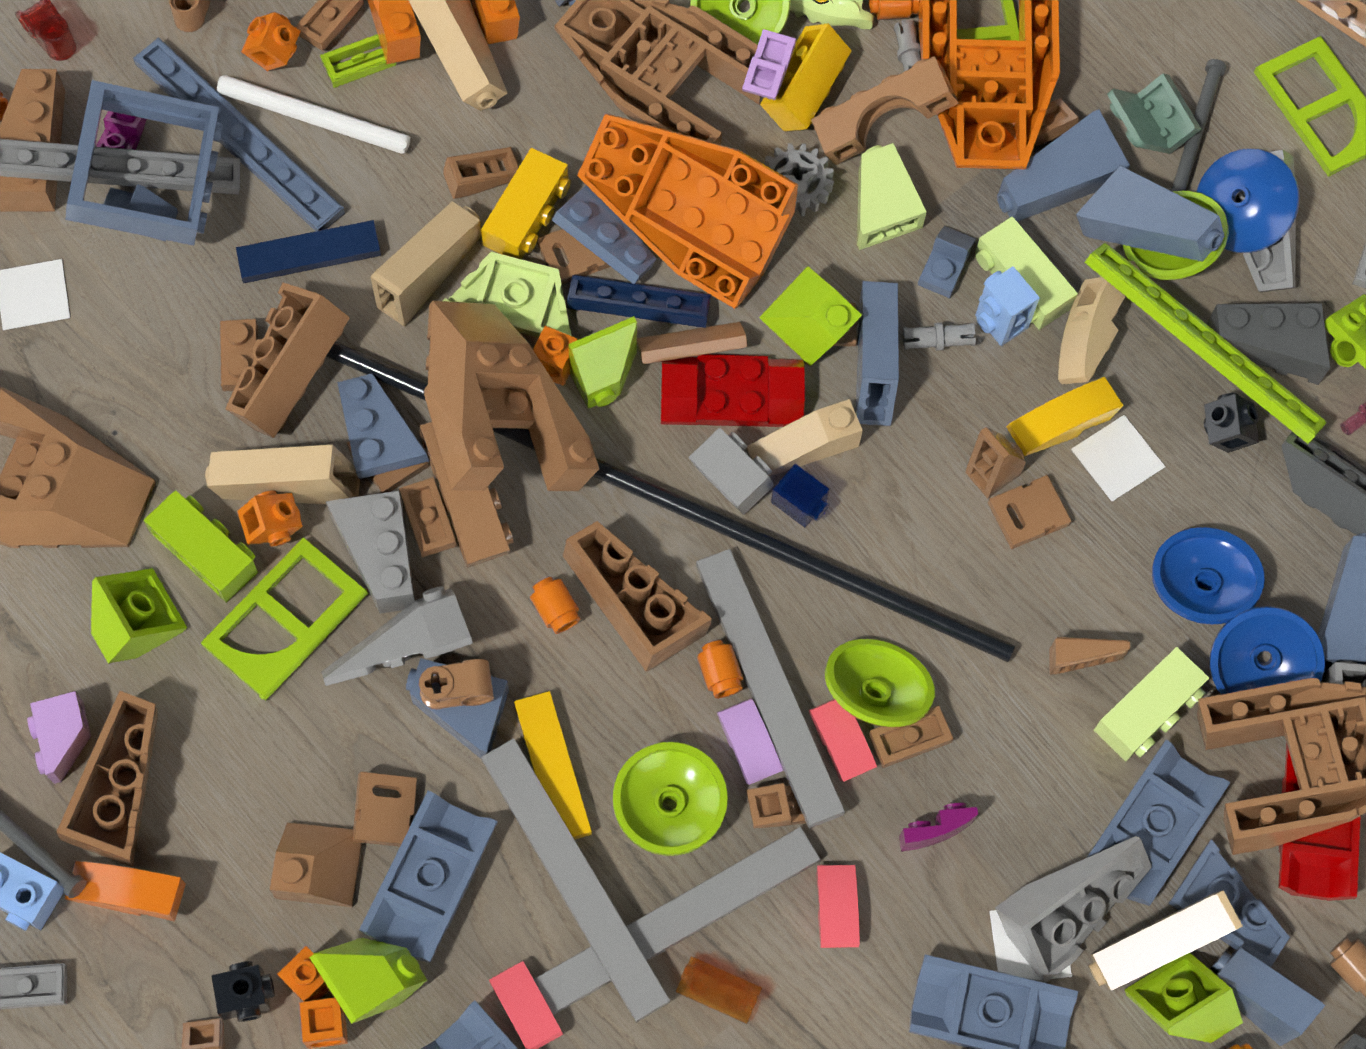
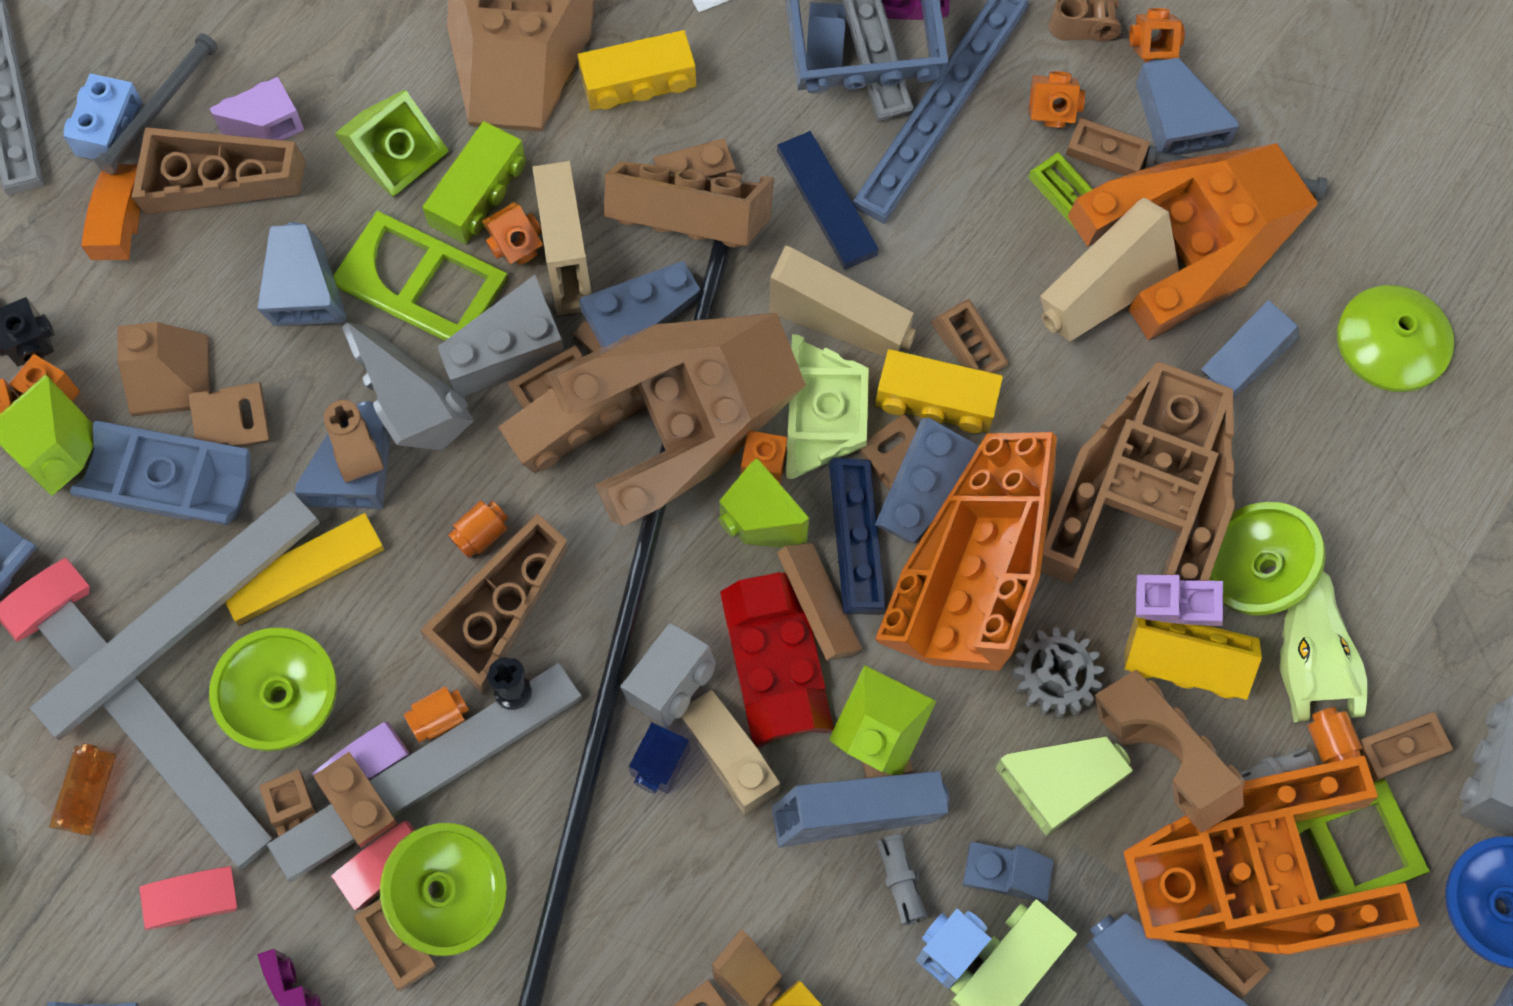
camera: 80 degrees right, 0 degrees up
(125, 379) = (637, 70): none -> yellow brick
(259, 719) = (298, 279): none -> slope
(313, 114) = (986, 166): white axle -> none
(702, 598) = (509, 684): none -> black bush
(786, 743) = (355, 799): none -> medium nougat plate

